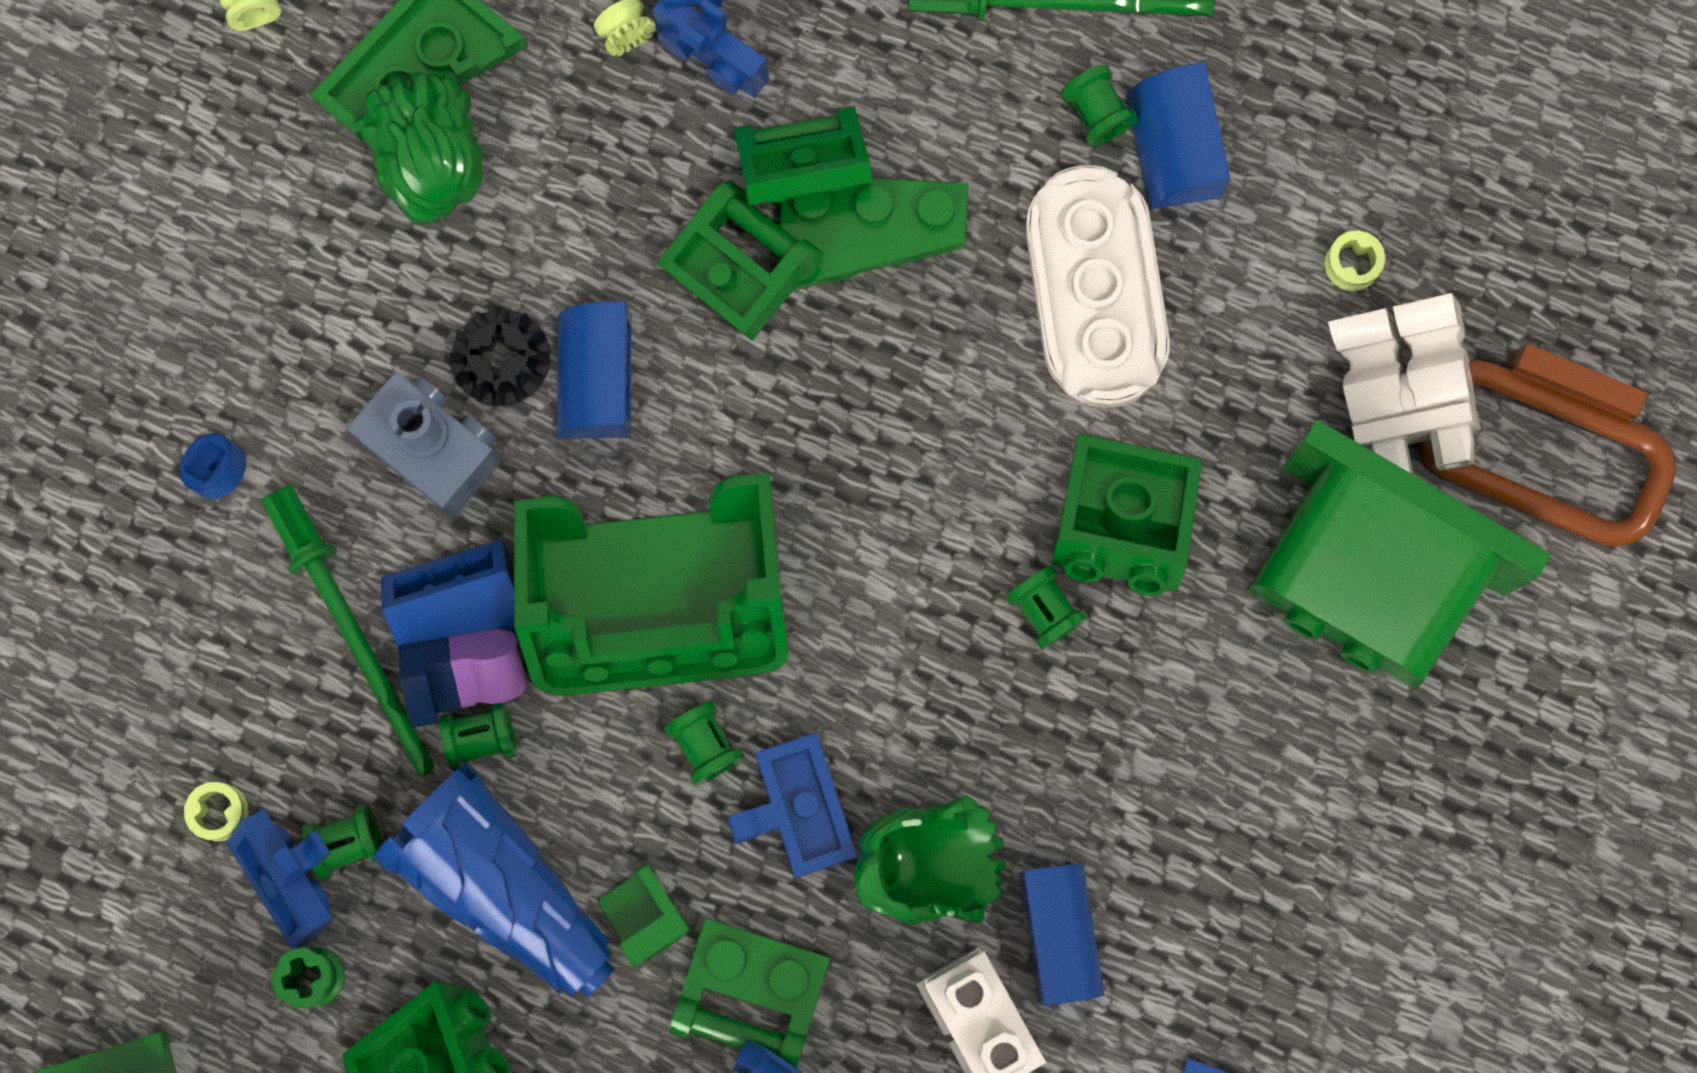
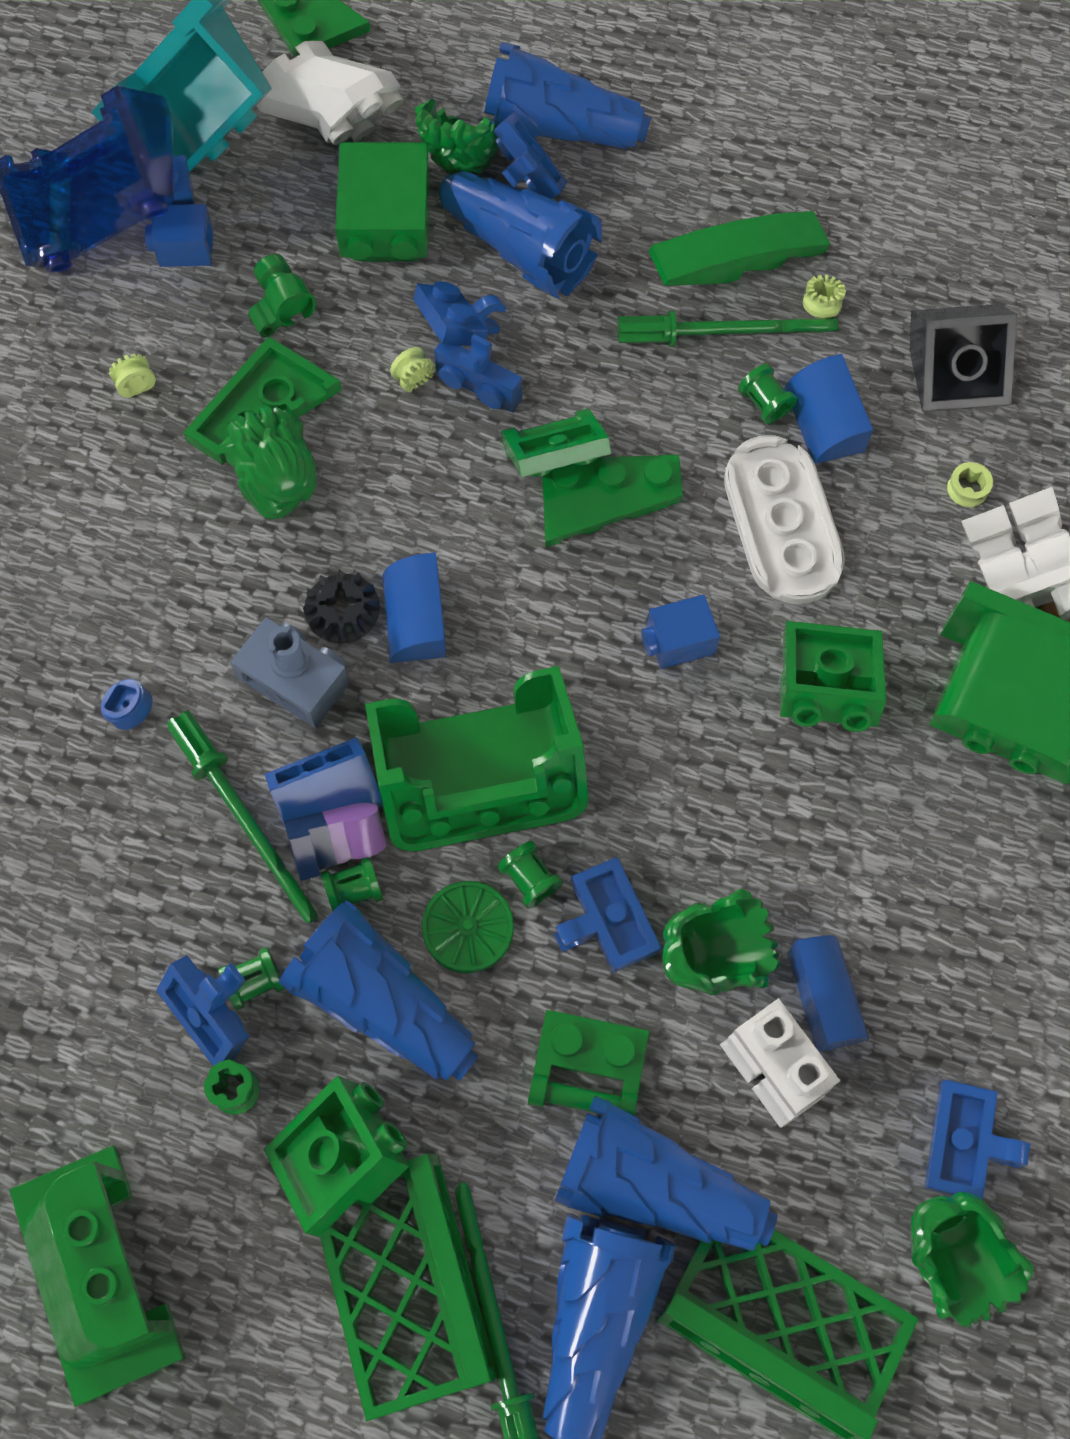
camera: 10 degrees left, 10 degrees down
(196, 809) = (131, 966): yellowish green bush -> none
(619, 800) = (467, 927): none -> green wheel
(644, 916) = (498, 1012): green panel -> none
(727, 276) = (509, 532): green plate -> none
(936, 437) = (680, 632): none -> blue brick
(1028, 597) = (776, 732): green bush -> none
(1374, 73) = (963, 356): none -> black slope

